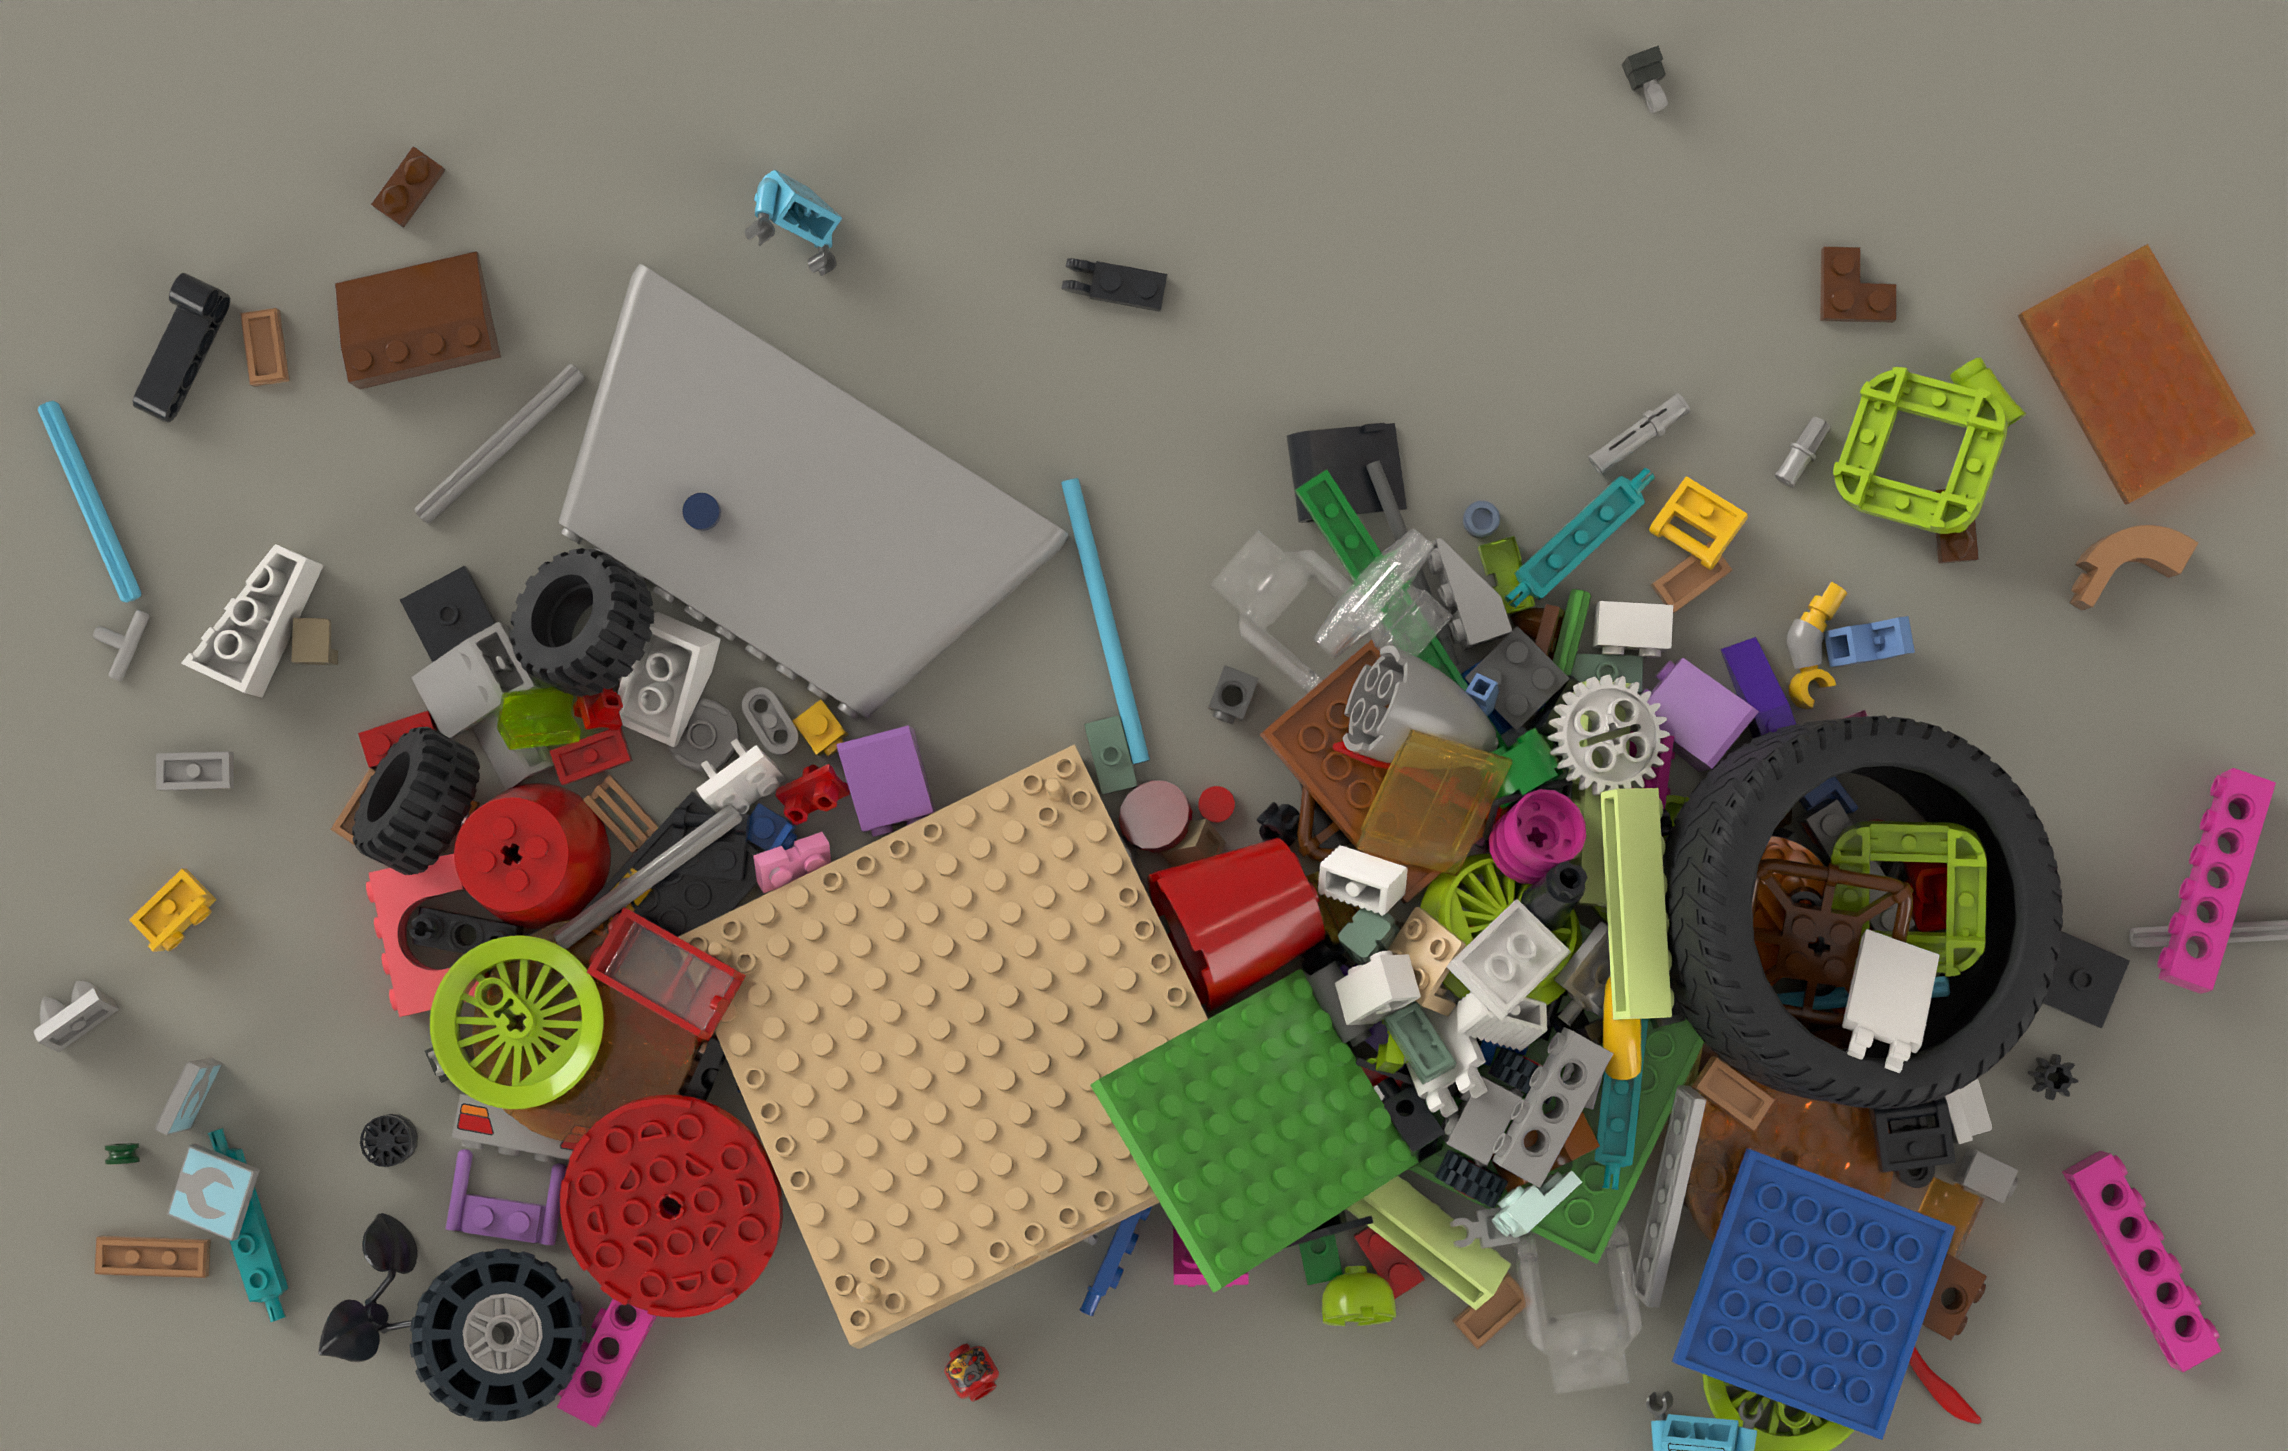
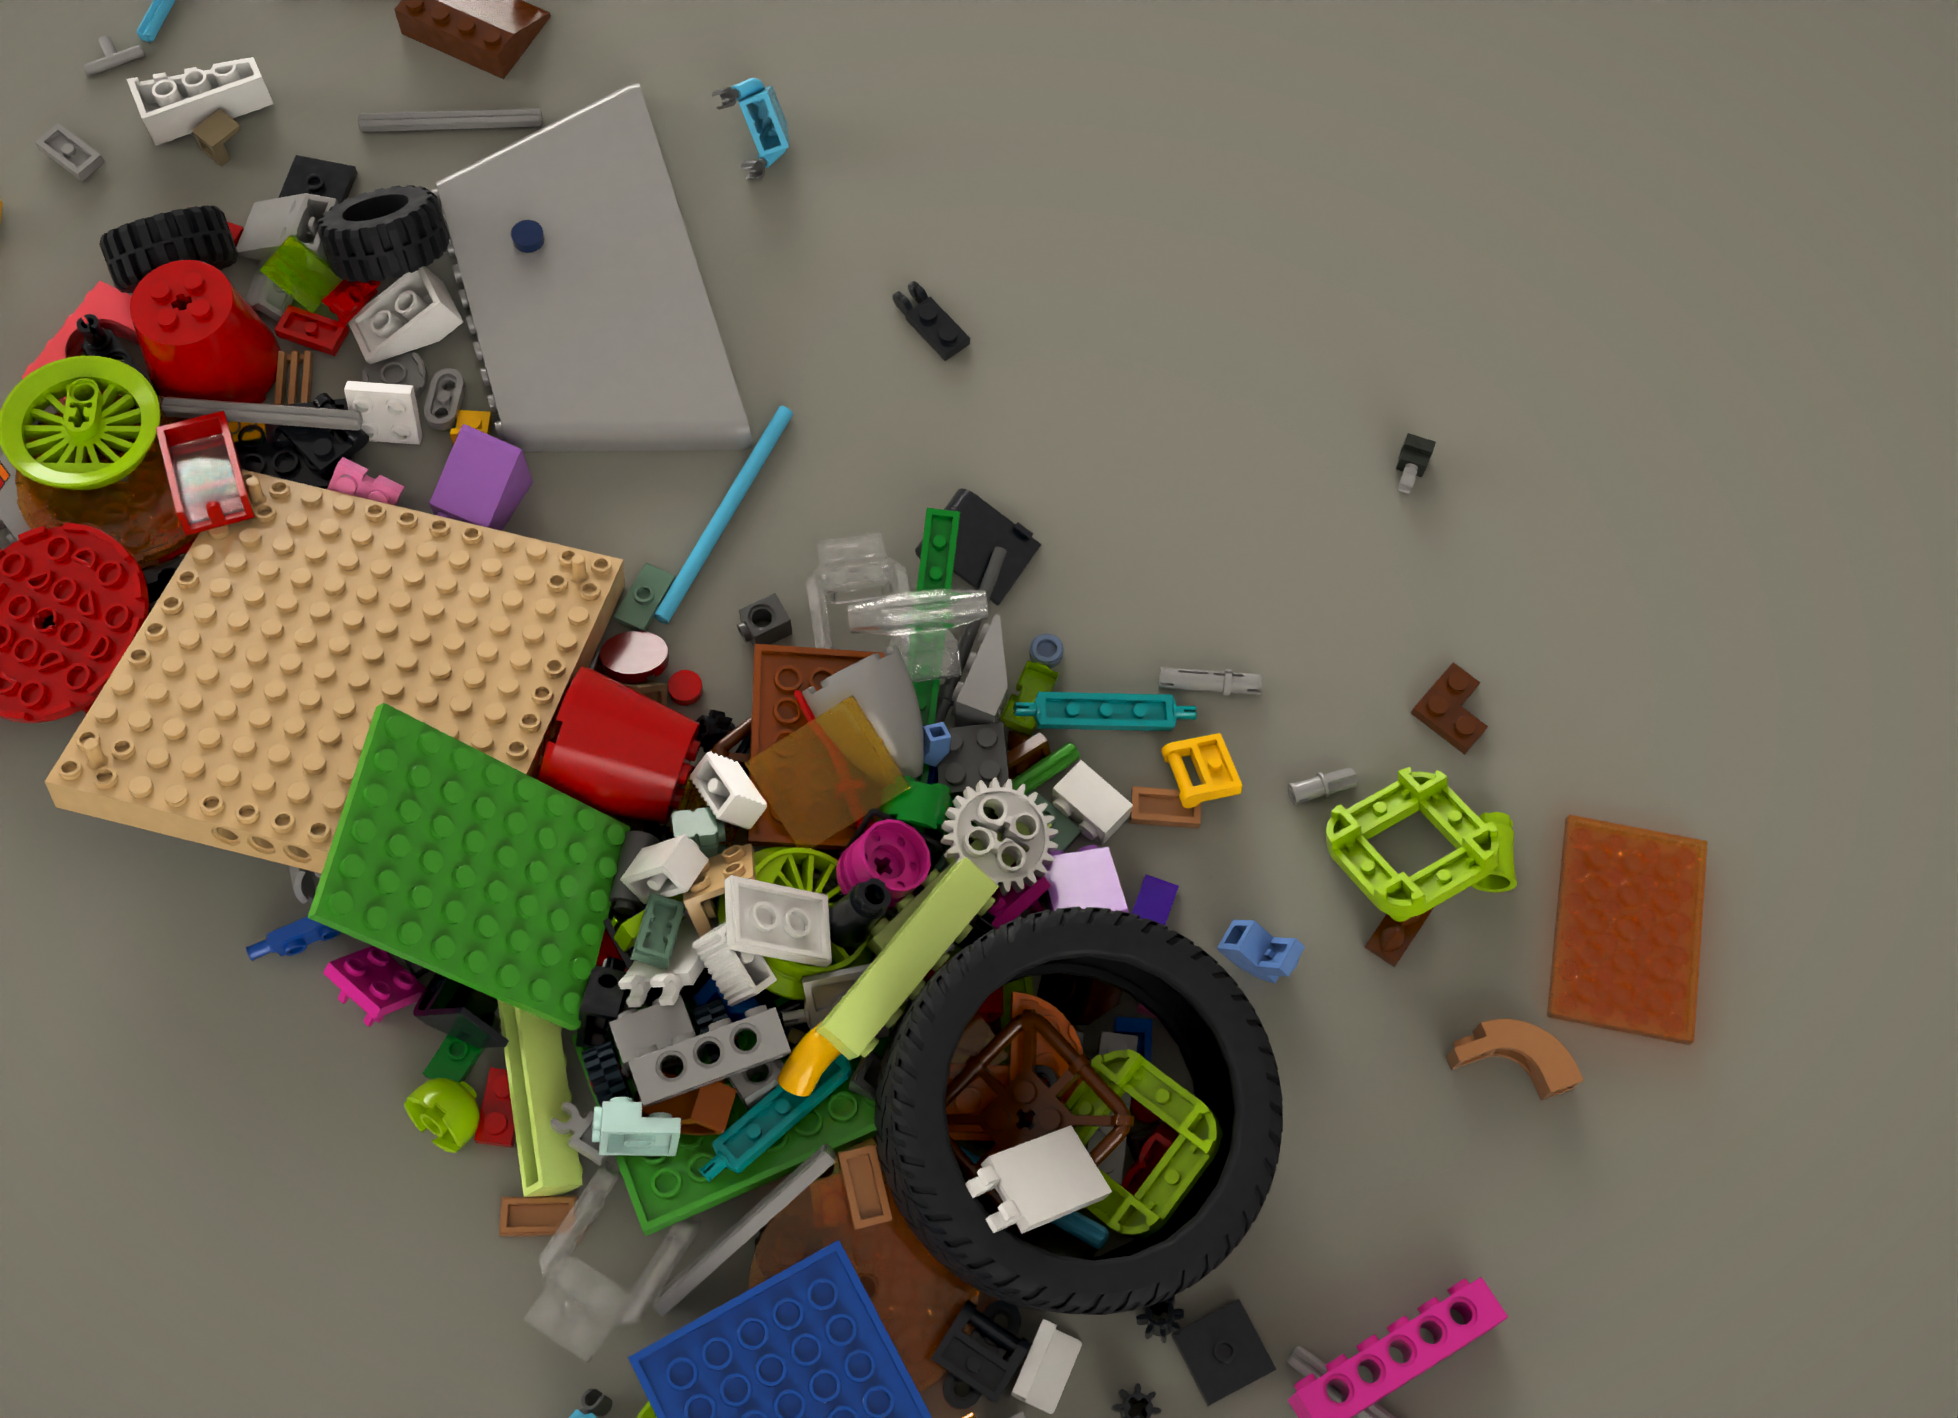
camera: 35 degrees right, 20 degrees down
(770, 829) = (376, 460): blue bracket -> none
(813, 791) = (420, 456): red hips -> none
(971, 1372) = (128, 926): head -> none
(1805, 645) = (1219, 910): yellow piece -> none

